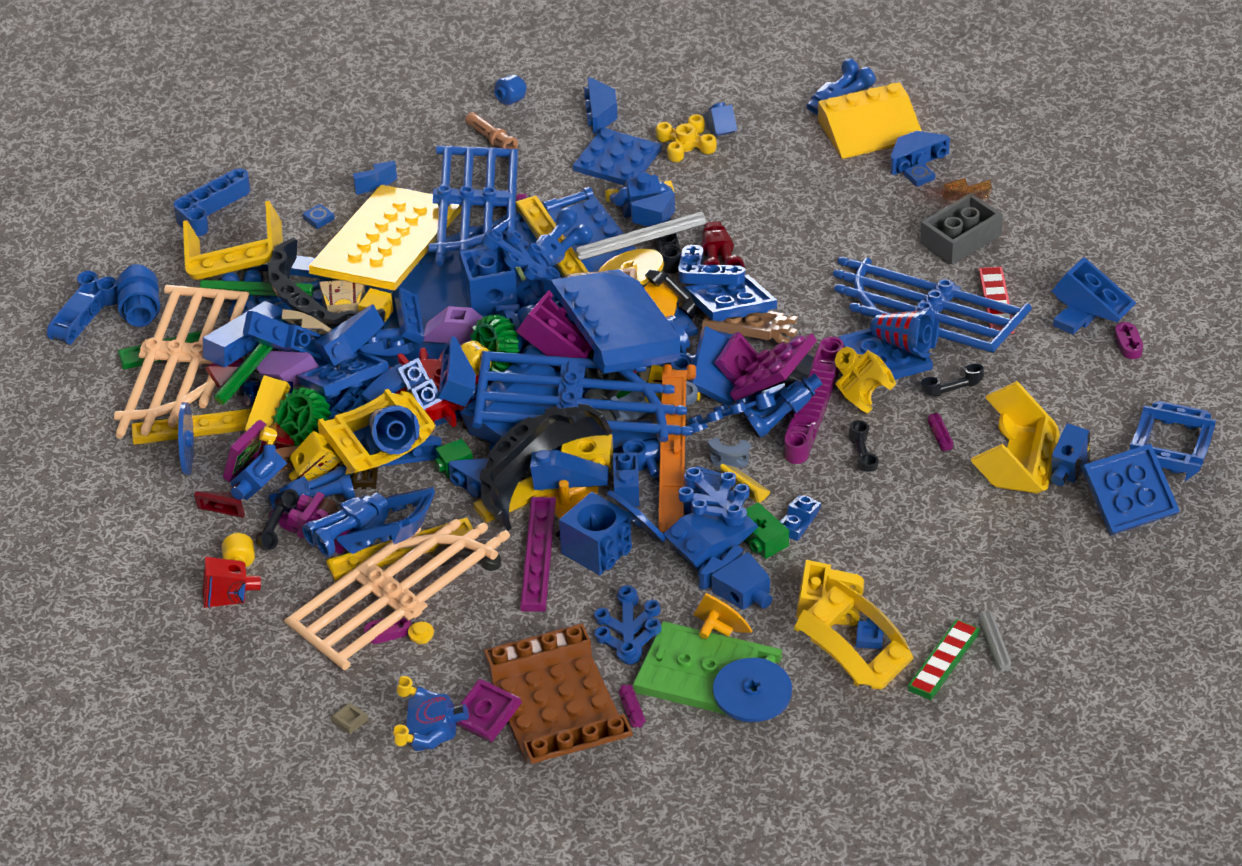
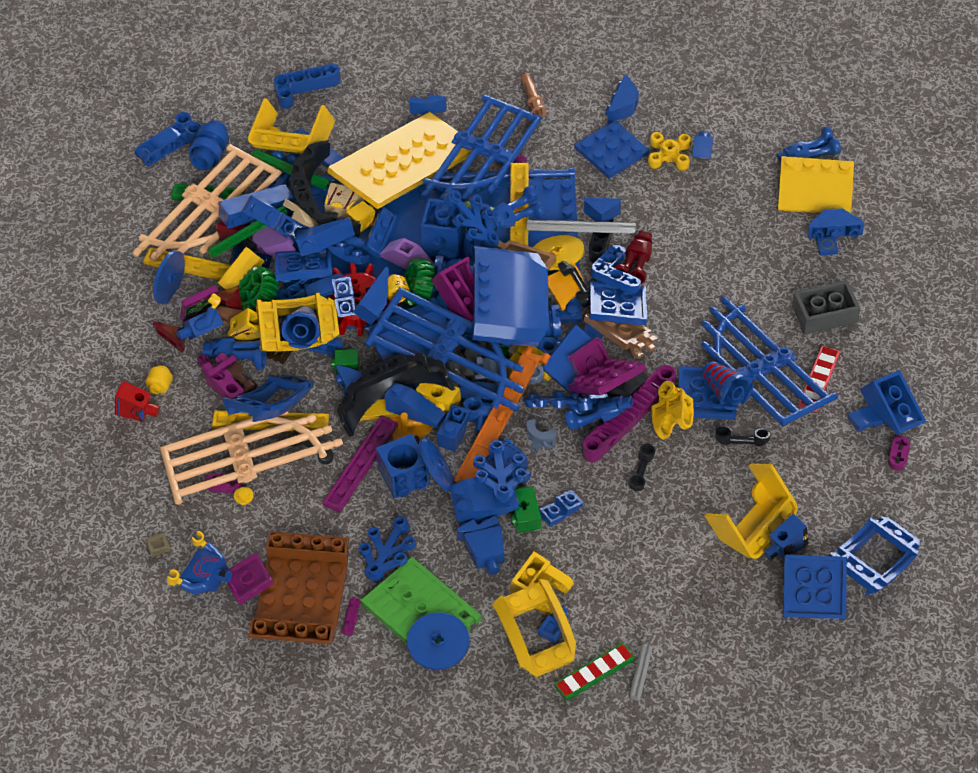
camera: 25 degrees right, 10 degrees up
(283, 501) = (209, 352): black bar -> none
(318, 216) = (372, 122): blue tile -> none
(353, 514) = (245, 384): blue piece -> none
(510, 89) = (566, 63): blue head -> none
(636, 189) = (607, 188): blue torso -> none
(719, 617) = (442, 573): light orange shield -> none
(756, 491) = (539, 463): yellow slope -> none
(940, 432) = (708, 475): magenta axle -> none
(959, 188) = (846, 273): clear orange slope -> none

